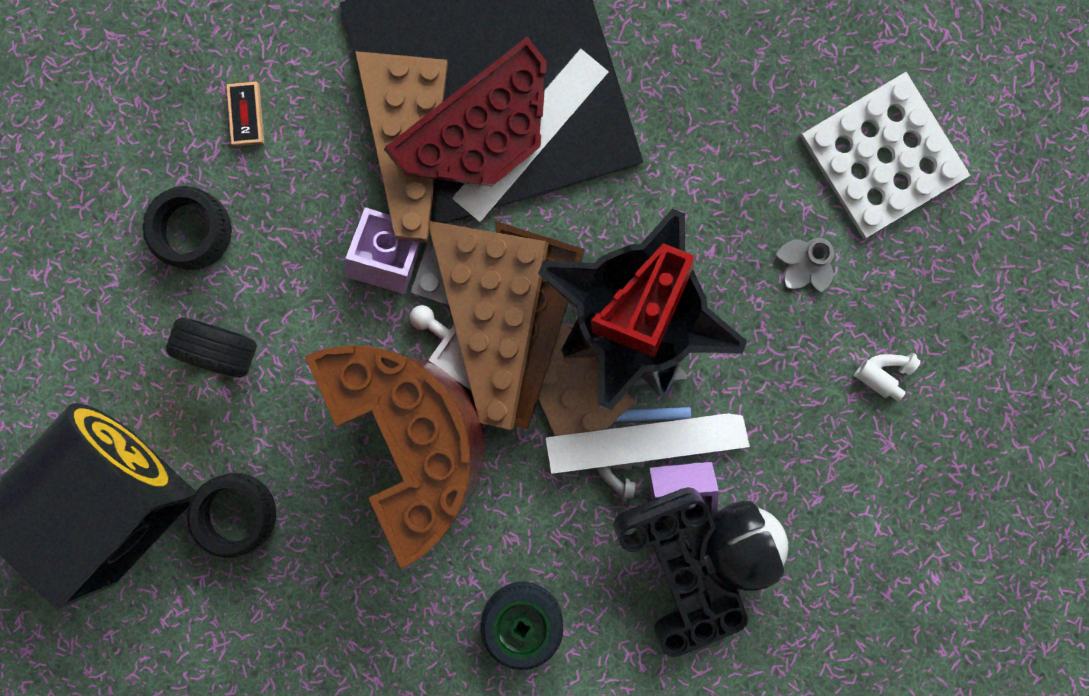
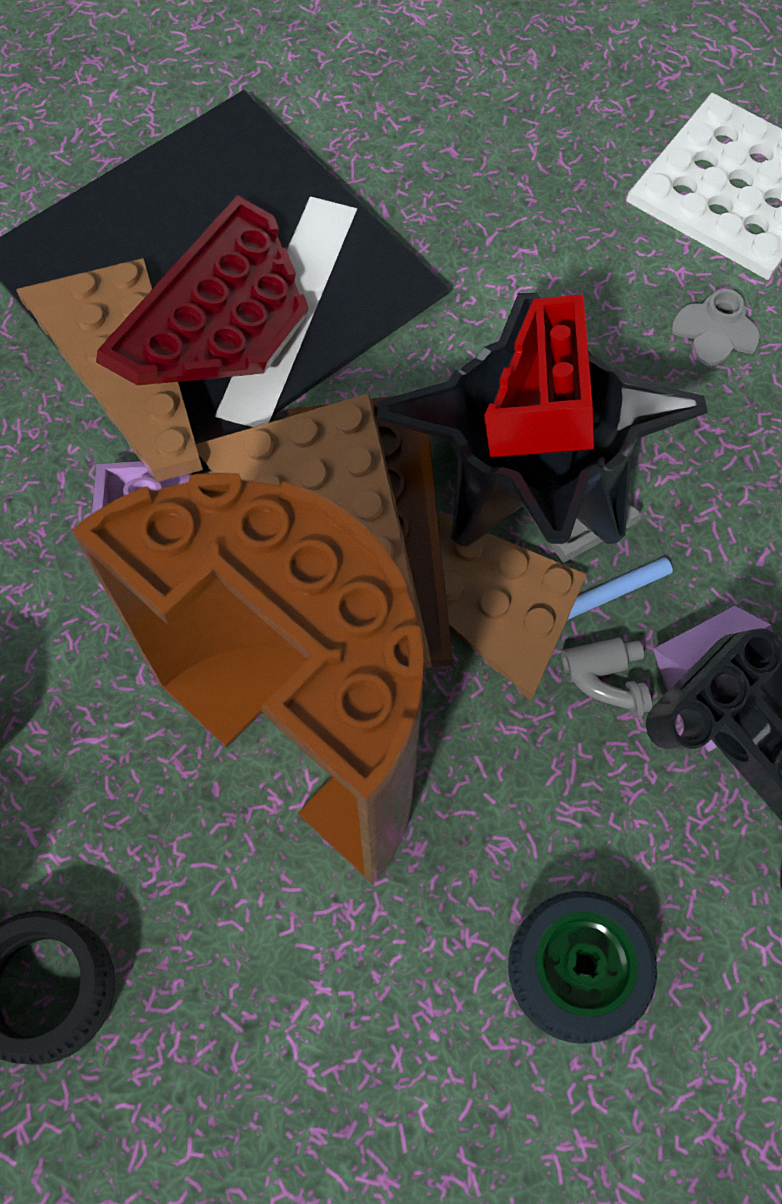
camera: 25 degrees left, 20 degrees down
(646, 442) = (625, 622): white sticker -> none

